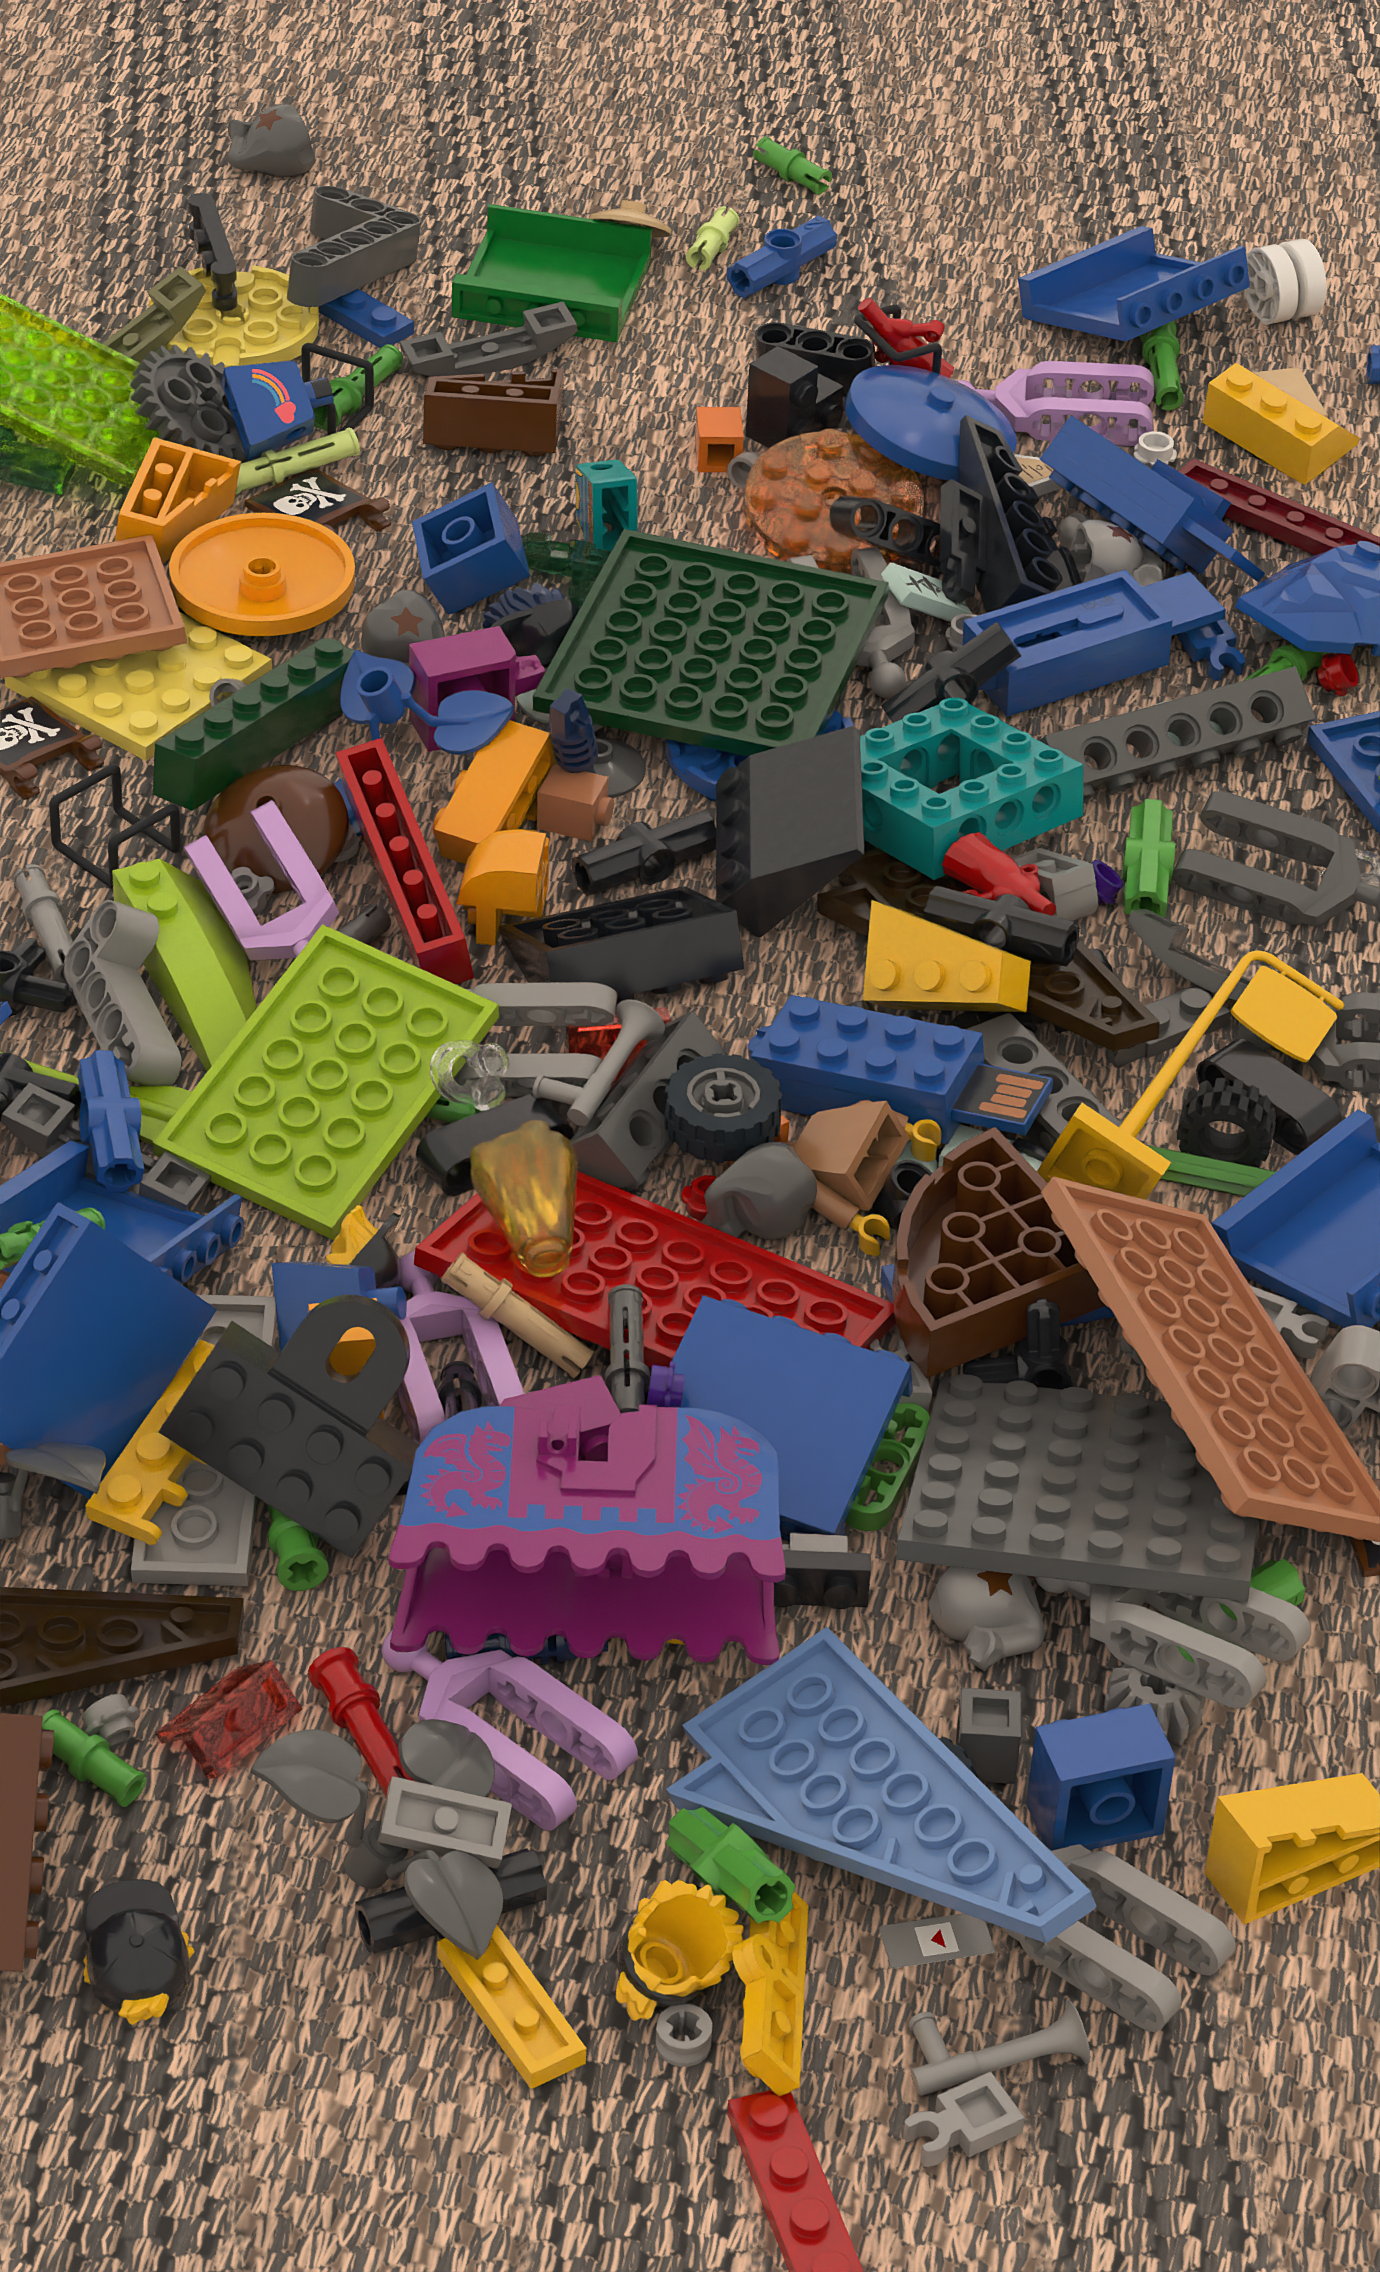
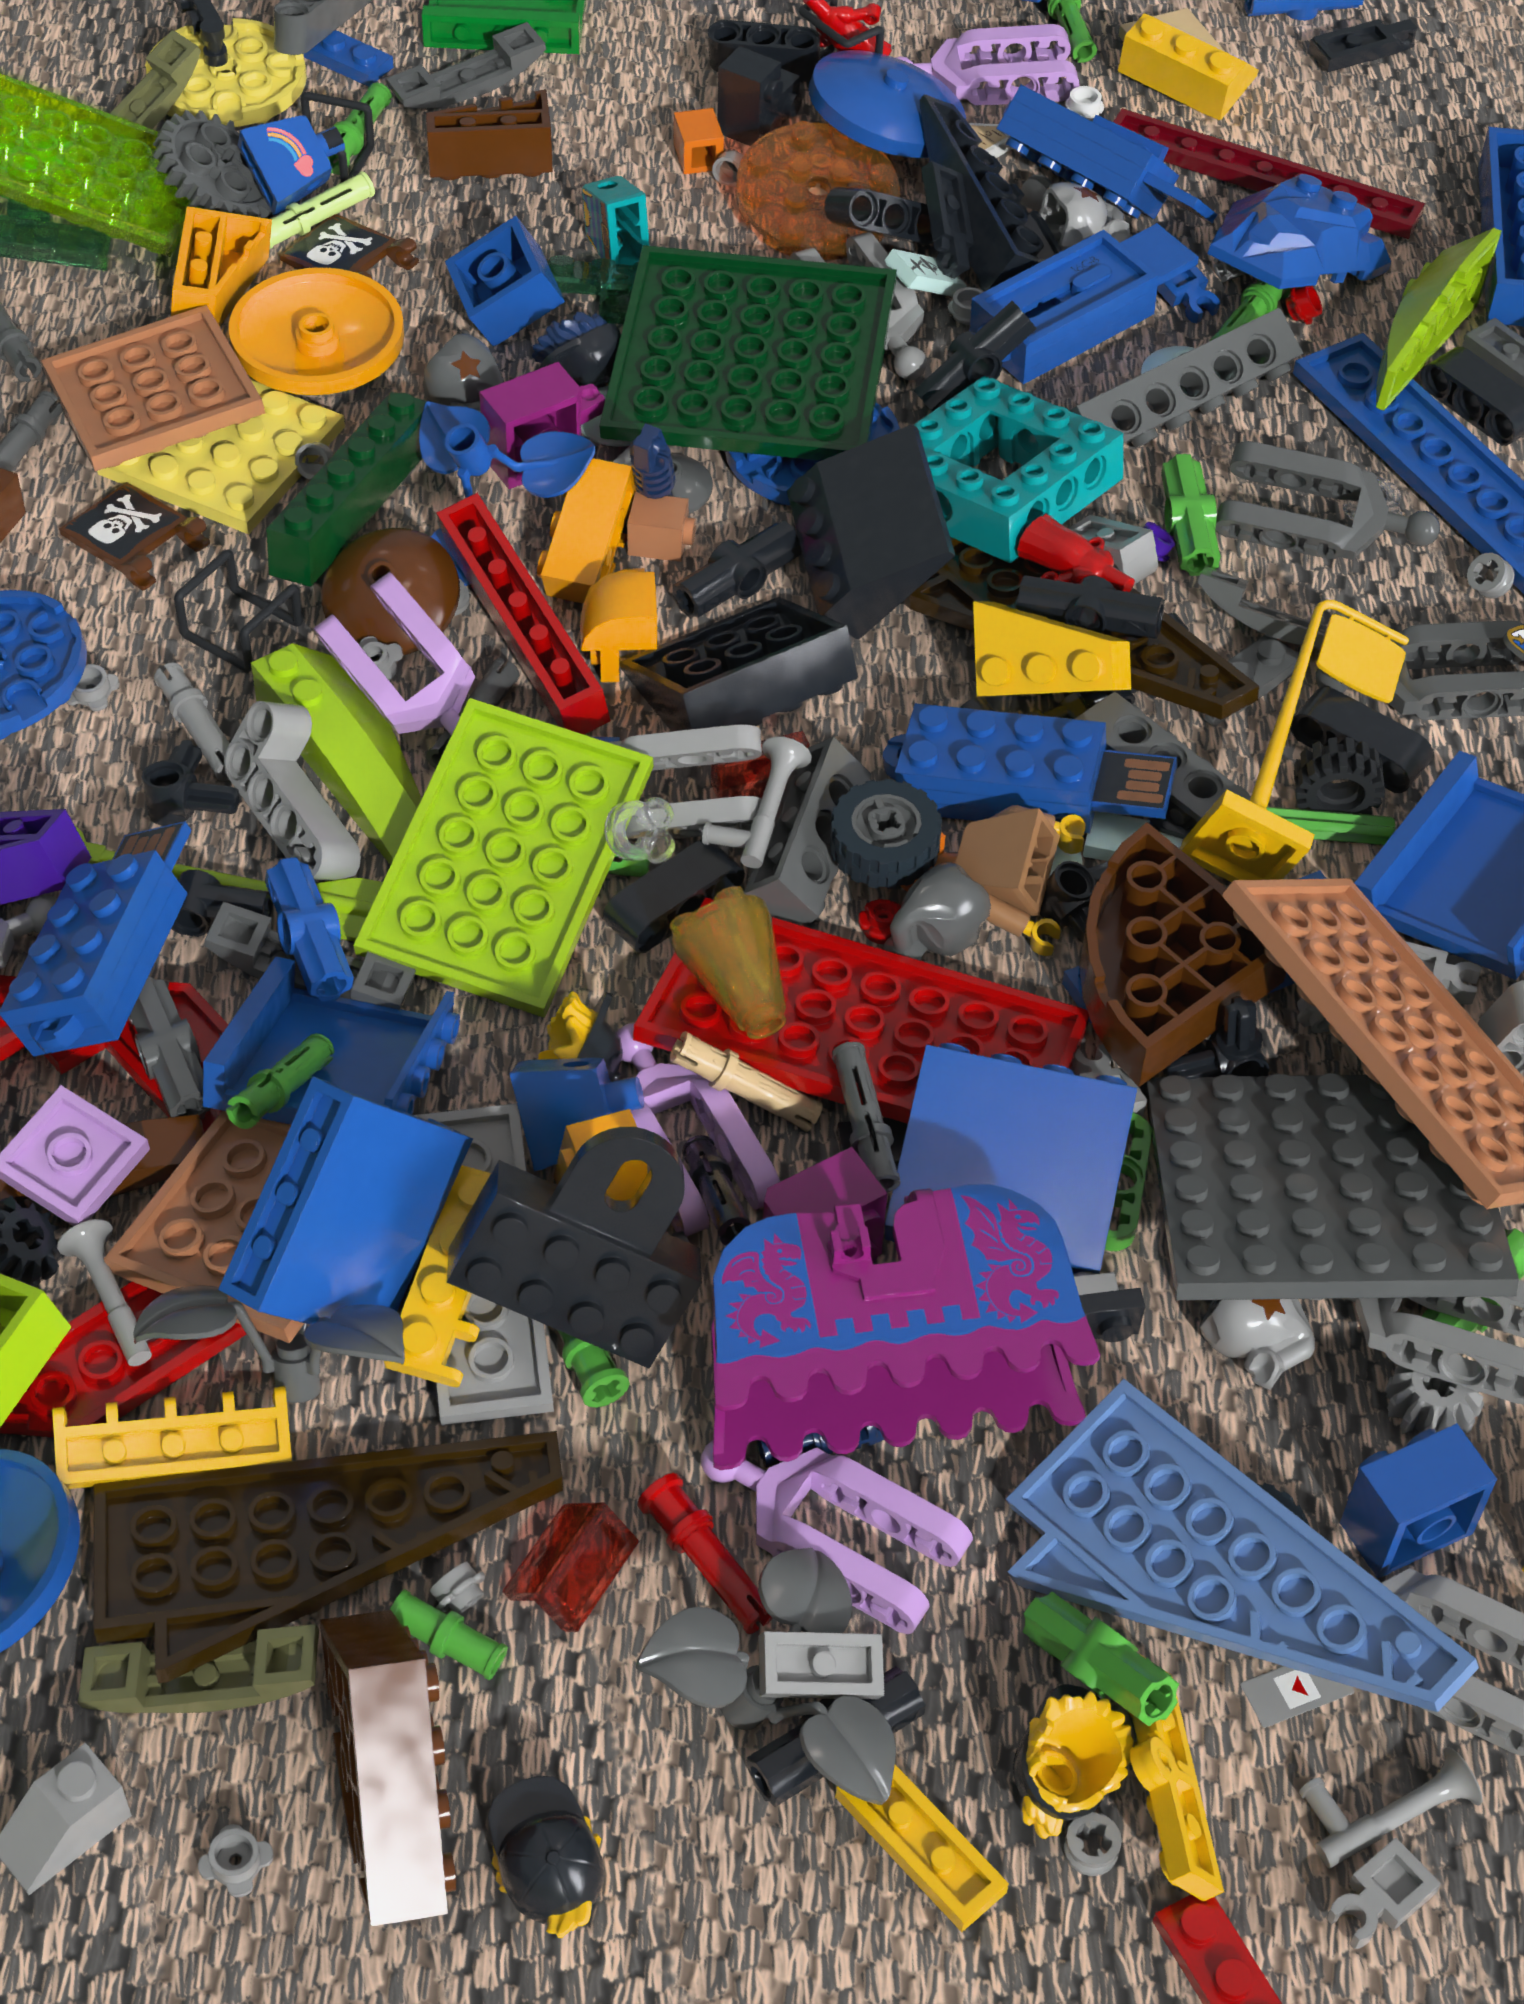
camera: 10 degrees left, 10 degrees up
(665, 1386) = (912, 1148): dark purple plate -> none
(990, 1732) = (1300, 1462): dark grey brick -> none

